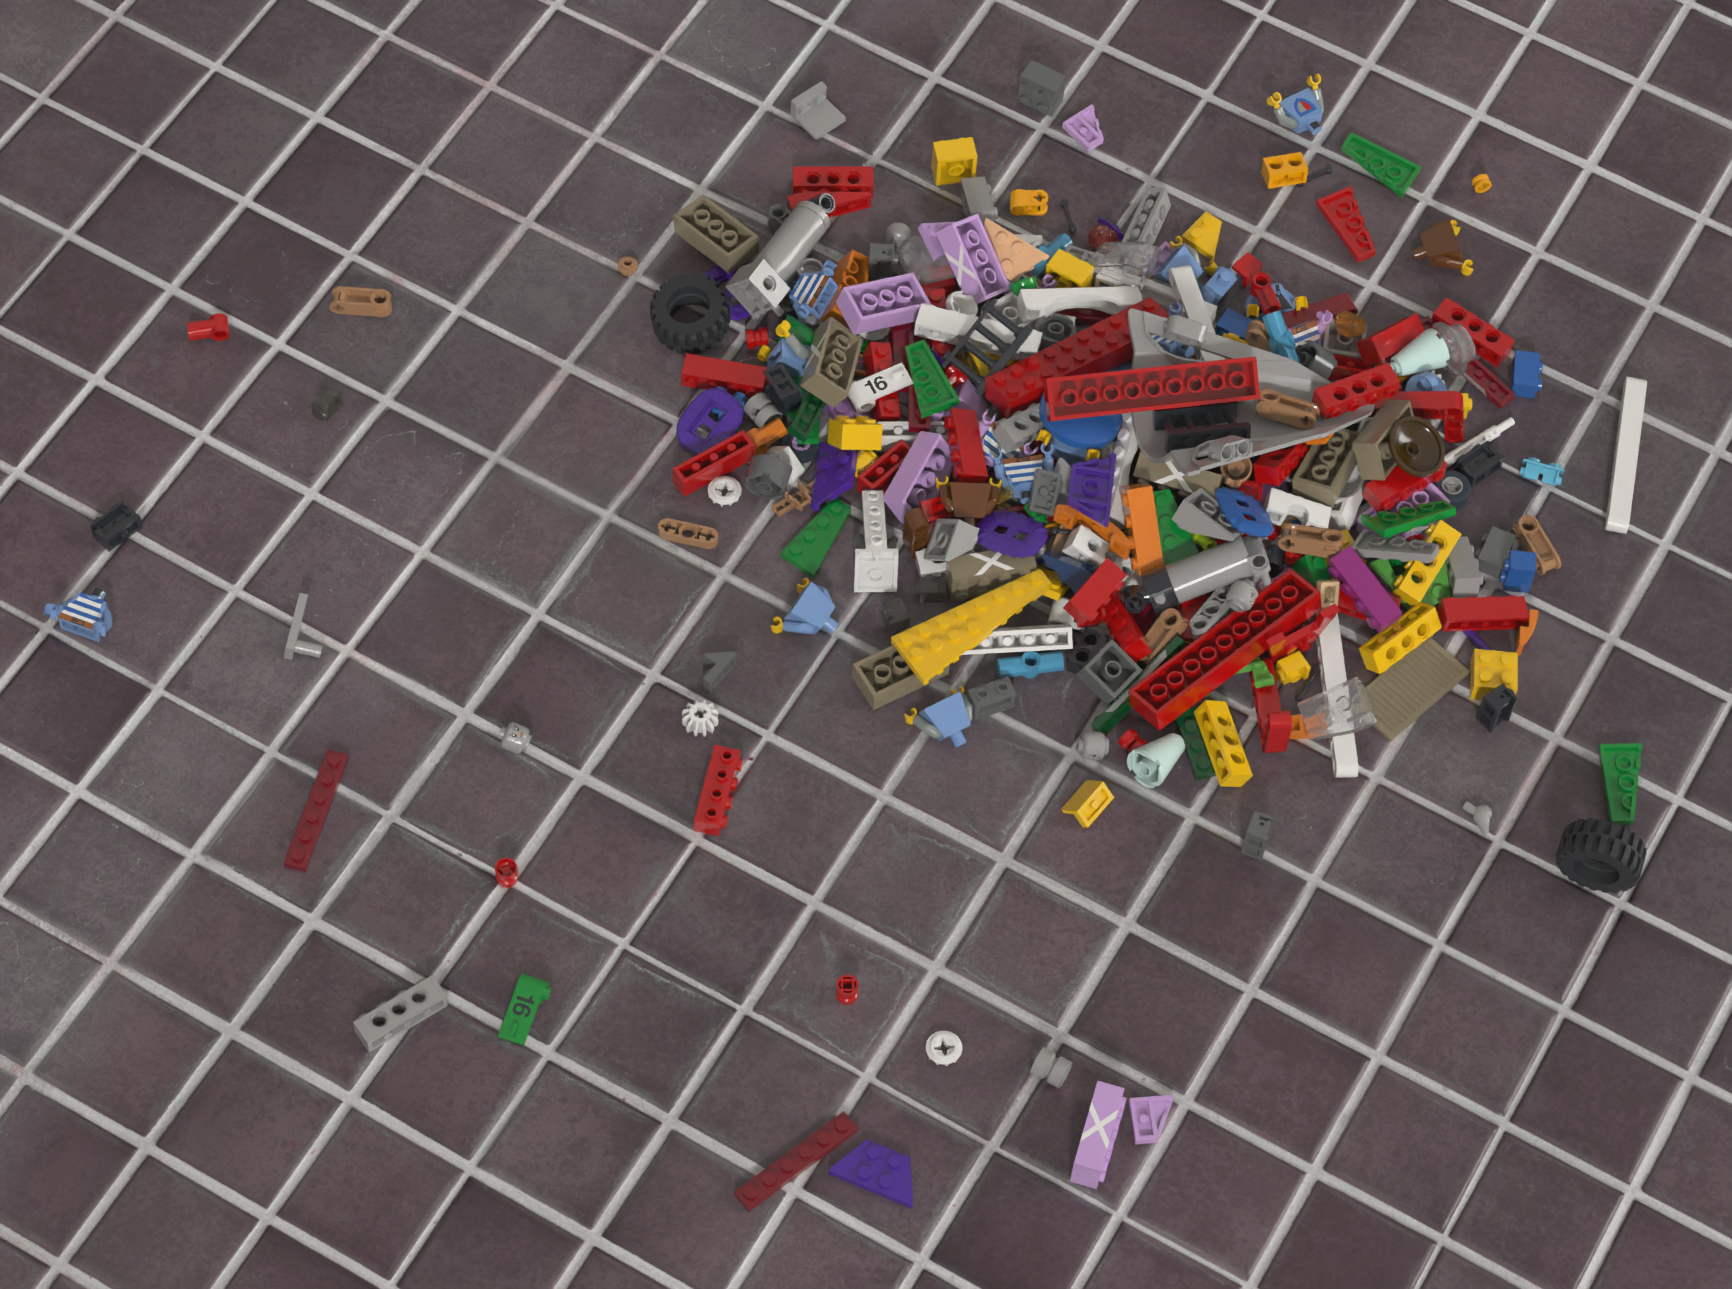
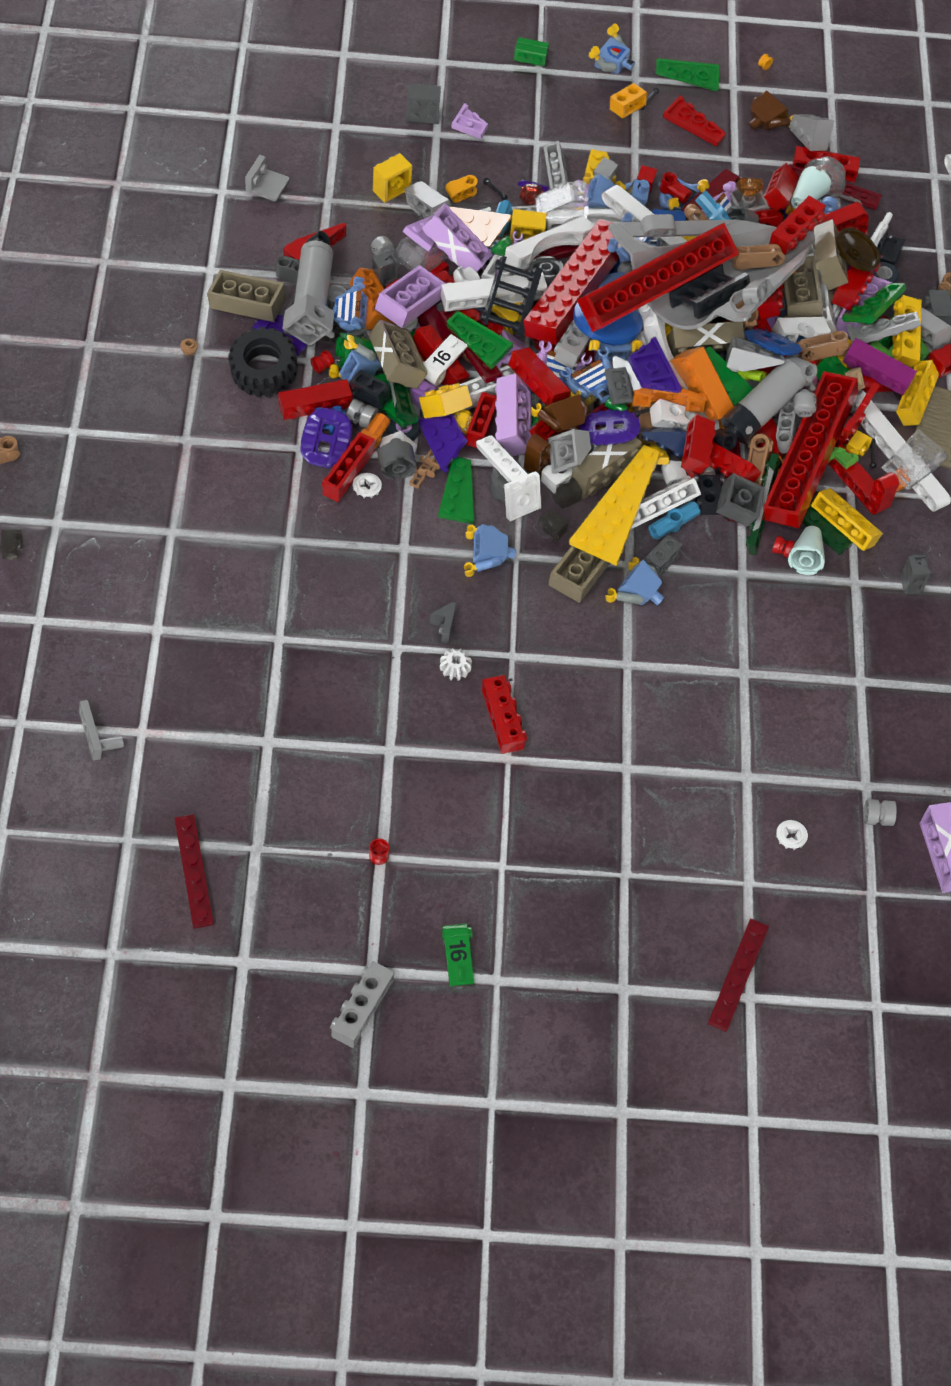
camera: 30 degrees left, 0 degrees up
(514, 738) = (321, 742): light grey head -> none
(693, 541) = (372, 531): medium nougat beam -> none
(833, 179) = (307, 224): red brick -> none
(849, 994) = (695, 827): red wheel -> none
(877, 1171) = (804, 952): dark purple wing -> none
(1088, 802) = (777, 603): yellow panel -> none
(1092, 745) = (755, 560): light grey head -> none
(1203, 242) = (606, 168): none -> light grey brick
(1208, 71) = (531, 51): none -> green brick
(1473, 287) = (812, 131): none -> light grey wedge
(1525, 374) = (879, 178): blue brick -> none
(1534, 468) = (925, 241): medium azure hinge -> none

